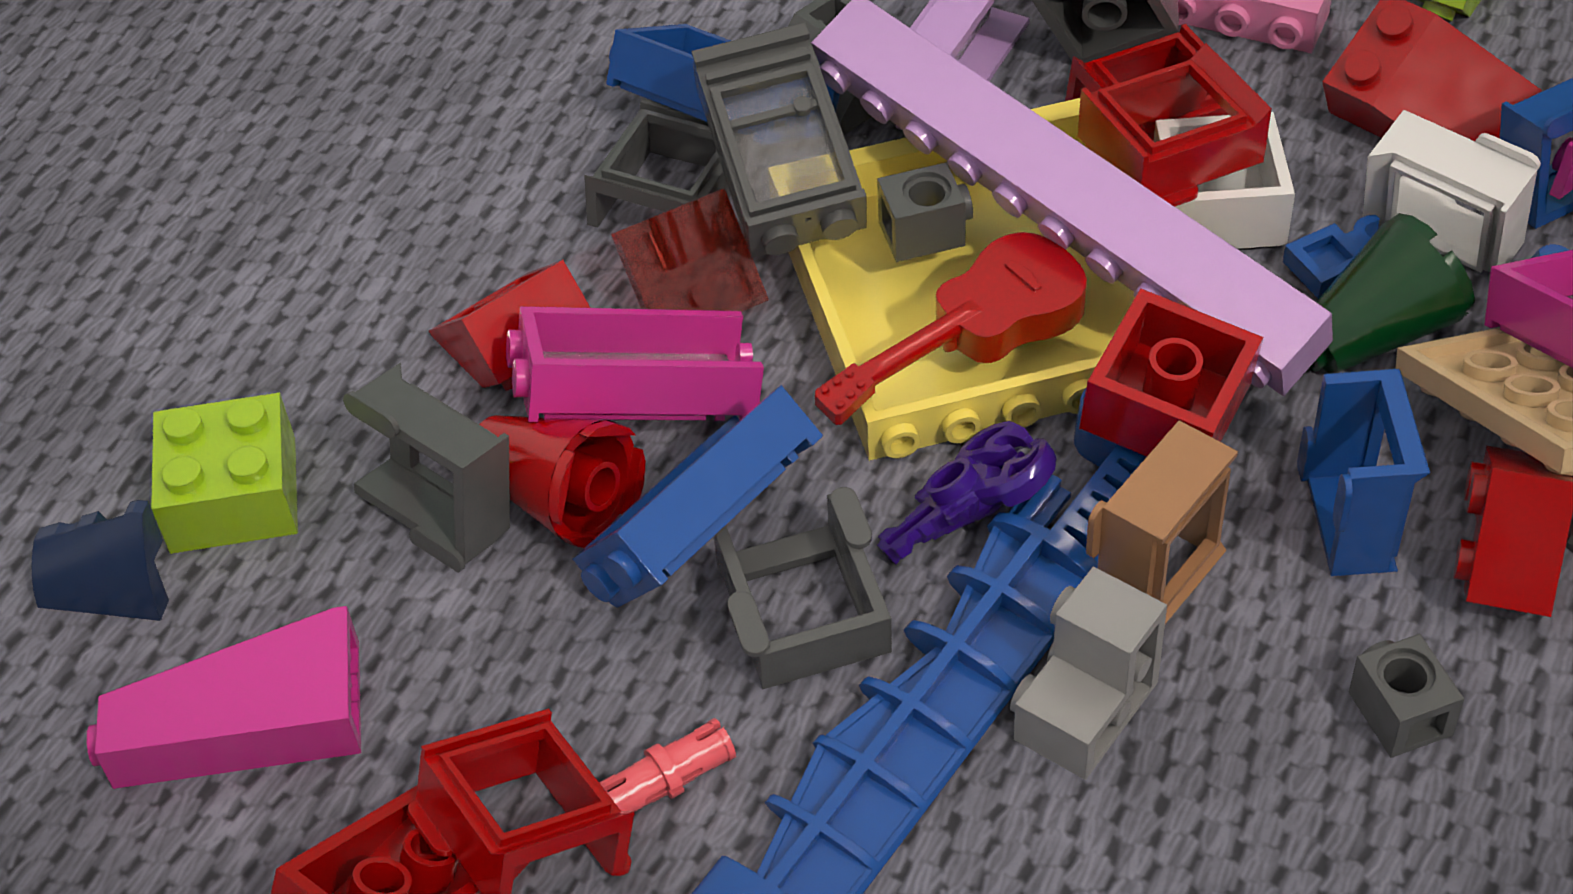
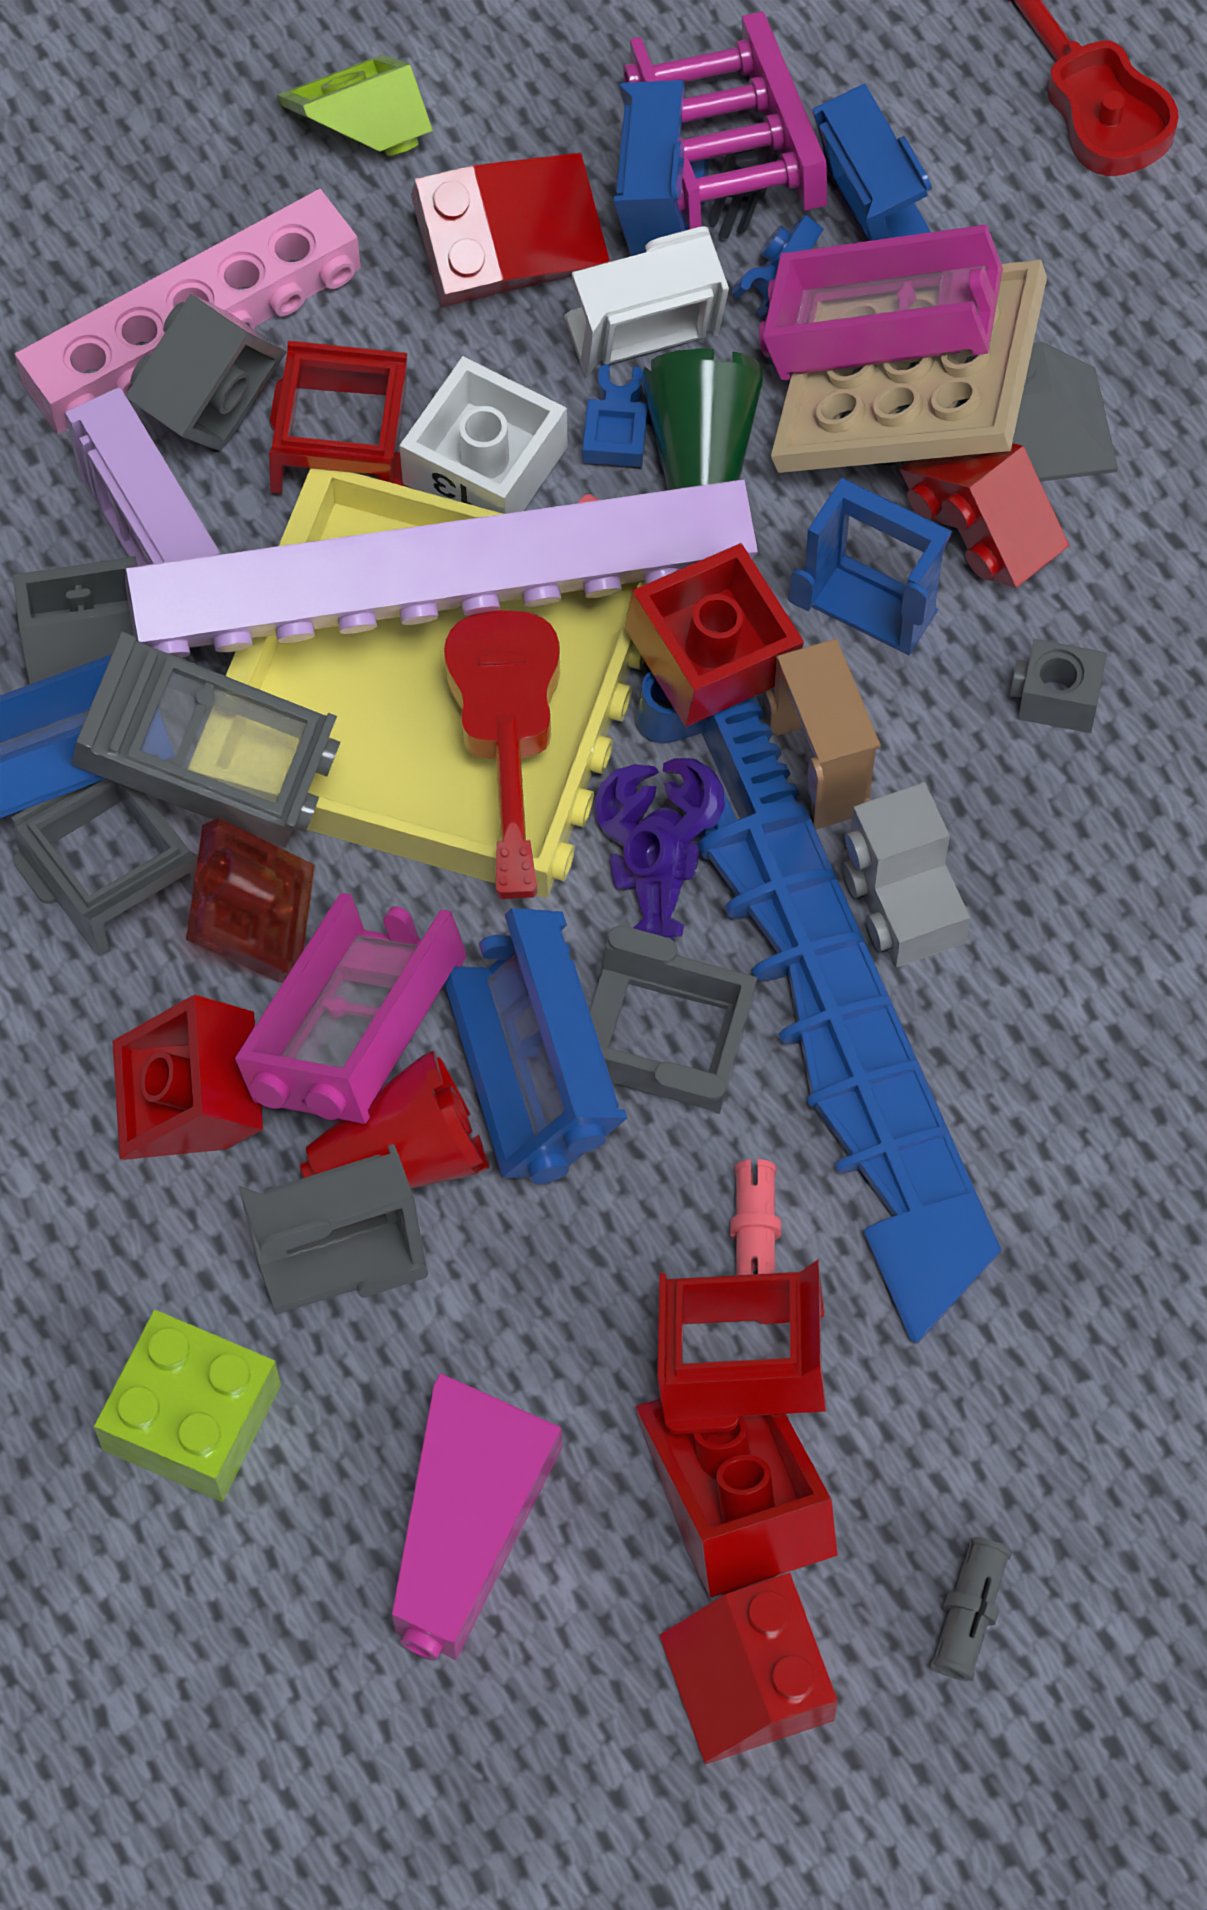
camera: 60 degrees left, 15 degrees up
(101, 565) = (225, 1558): dark blue slope -> none
(923, 211) = (367, 707): dark grey brick -> none
(1179, 163) = (436, 491): red piece -> none

